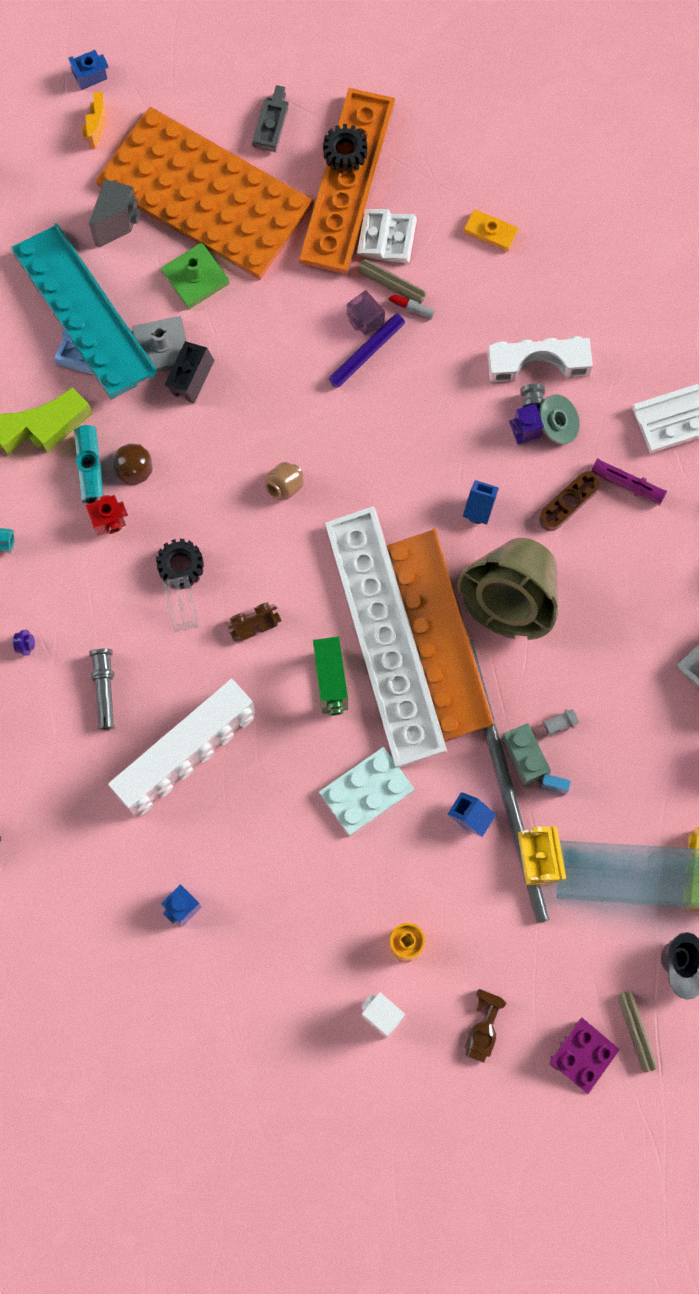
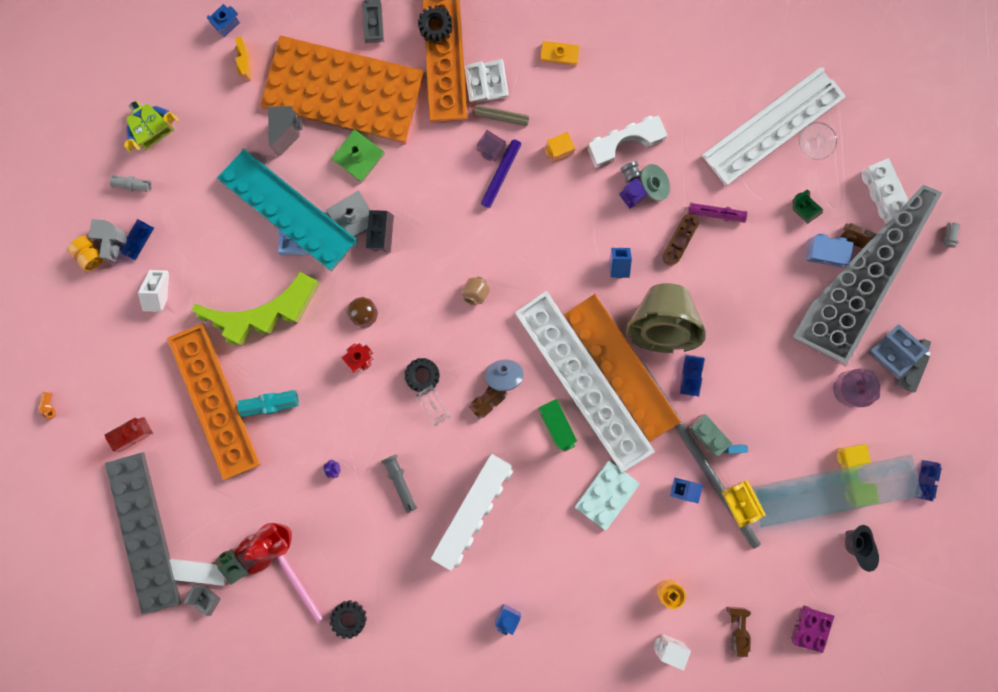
camera: 20 degrees left, 10 degrees up
(88, 450) = (327, 312): teal piece -> none
(284, 595) = (504, 380): none -> sand blue dish
(412, 306) = (522, 129): light grey piece -> none
(451, 340) = (559, 147): none -> light orange brick
(529, 674) = (691, 375): none -> clear blue slope
(561, 722) = (722, 405): light grey pin -> none
(637, 1031) = (843, 600): dark tan axle -> none

